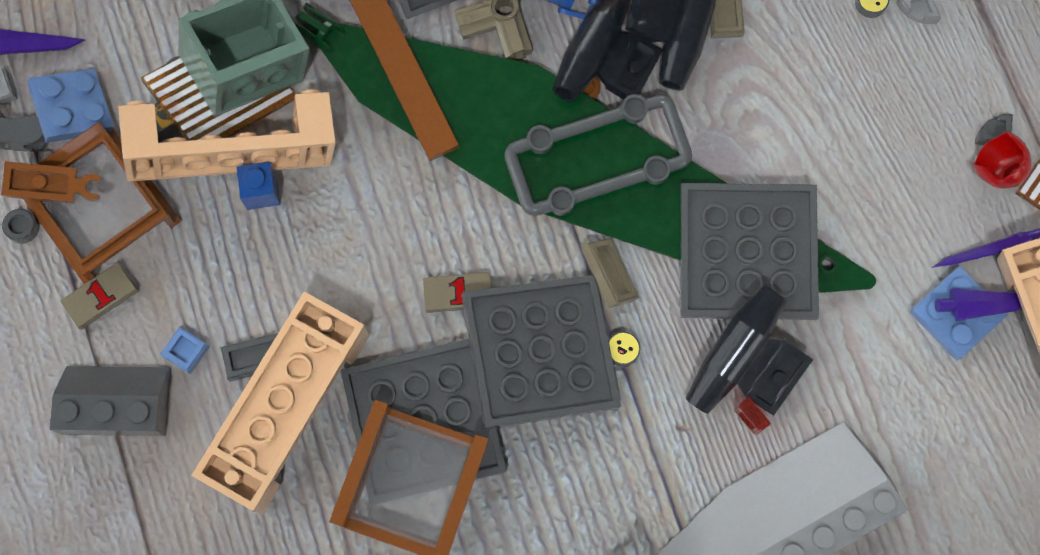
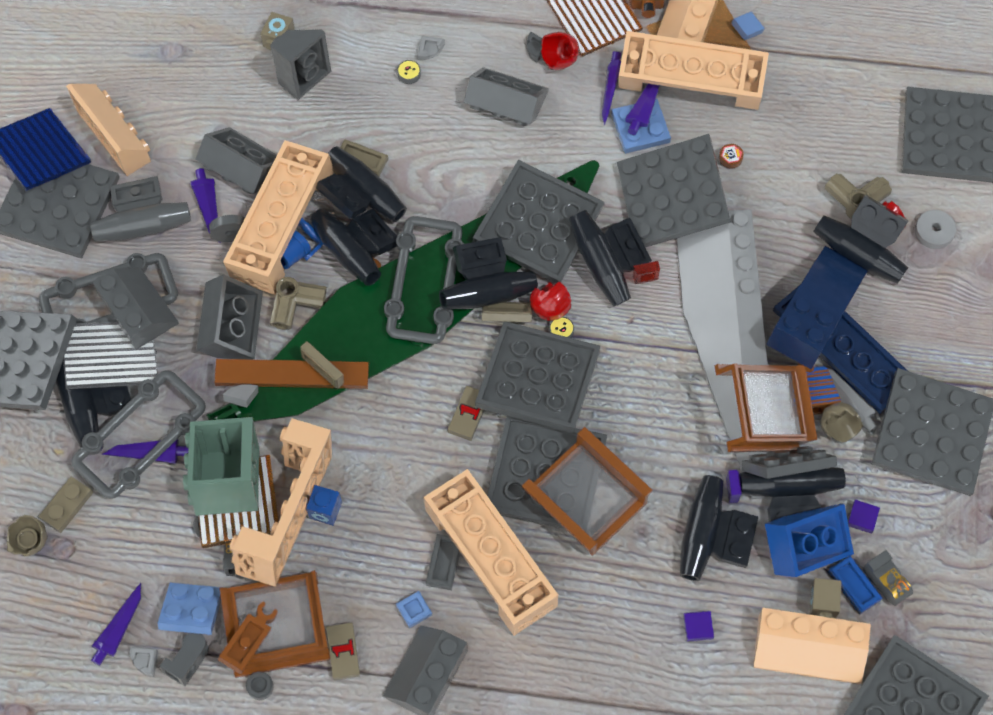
camera: 60 degrees left, 10 degrees down
(345, 25) = (241, 394): none -> light grey tile
(420, 93) = (322, 365): none -> dark tan tile
(630, 228) = (486, 282): none -> black plate
(647, 317) = (551, 301): none -> red hair
(883, 398) = (674, 191): none -> dark grey plate
(903, 127) = (505, 96): none -> slope
(979, 447) = (731, 156): none -> tile

